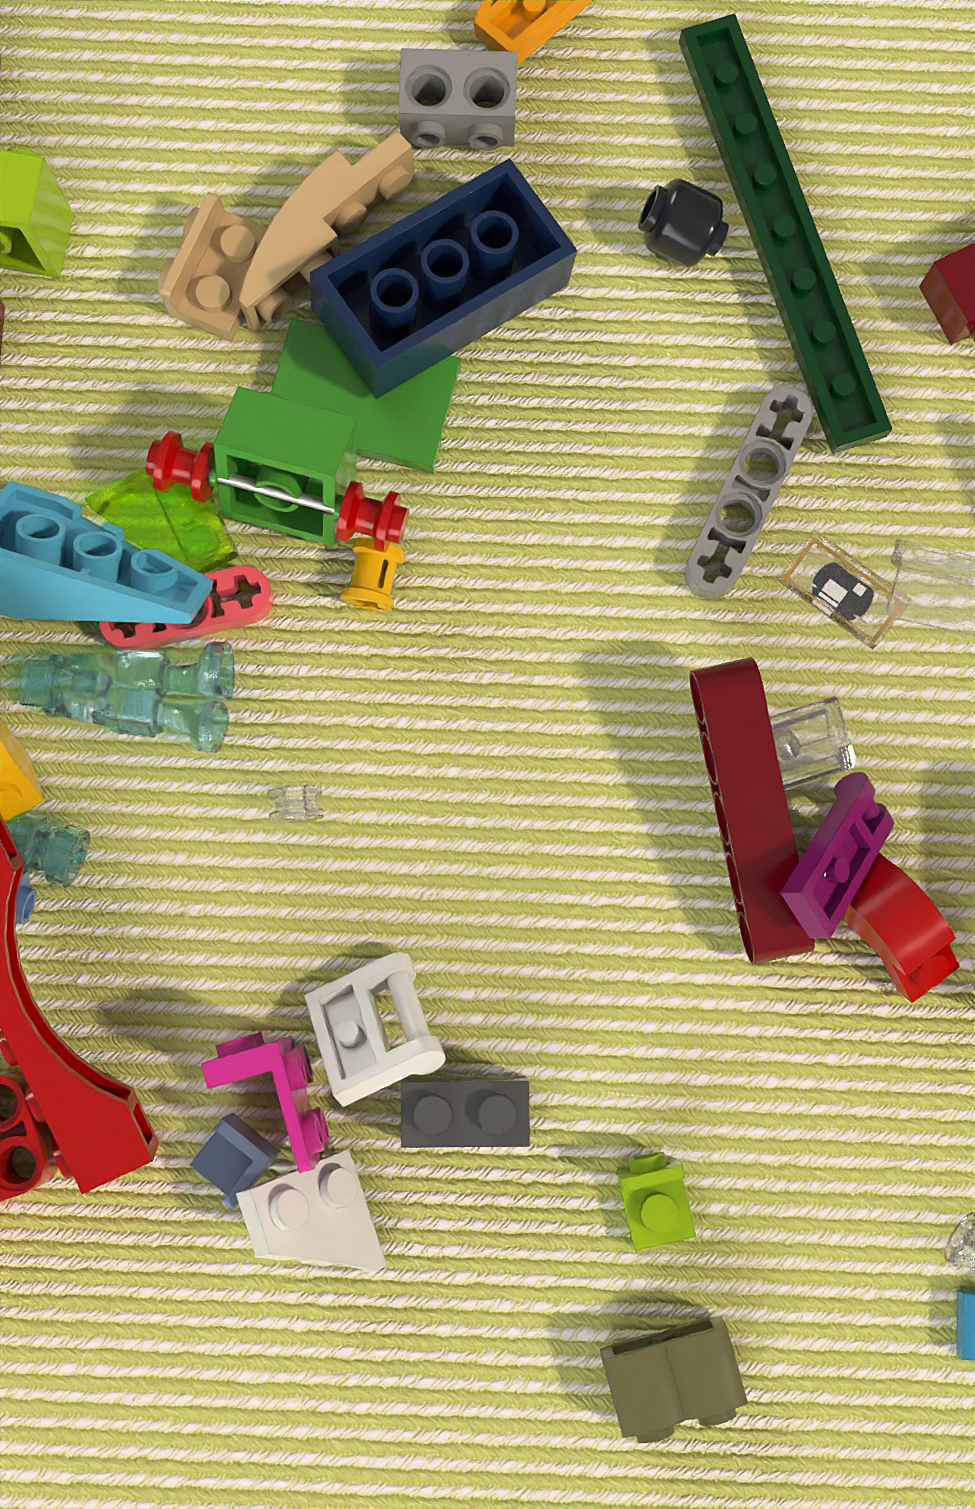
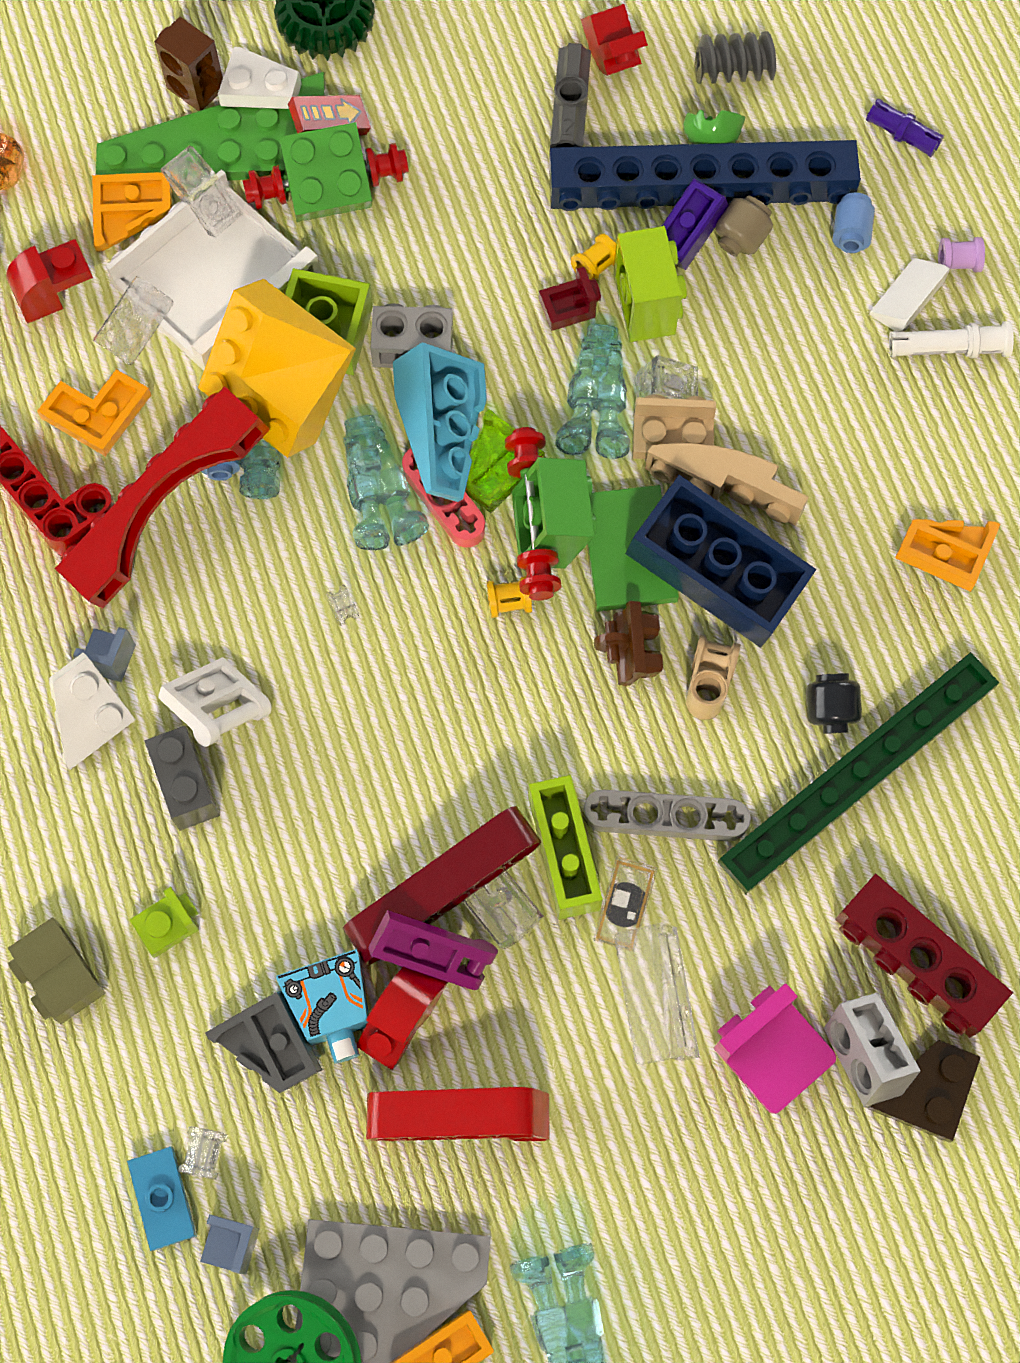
camera: 70 degrees right, 10 degrees down
(116, 339) = (600, 387): none -> clear light blue piece
(142, 247) = (667, 378): none -> clear bracket
(291, 1074) = (163, 662): dark pink bracket -> none
(459, 83) = (864, 528): light grey brick -> none
(502, 444) = (625, 644): none -> reddish brown hips
(578, 351) = (712, 671): none -> tan piece
(777, 632) = (564, 847): none -> lime brick
(847, 1017) = (329, 1002): none -> torso
(871, 1115) = (269, 1042): none -> dark grey wing

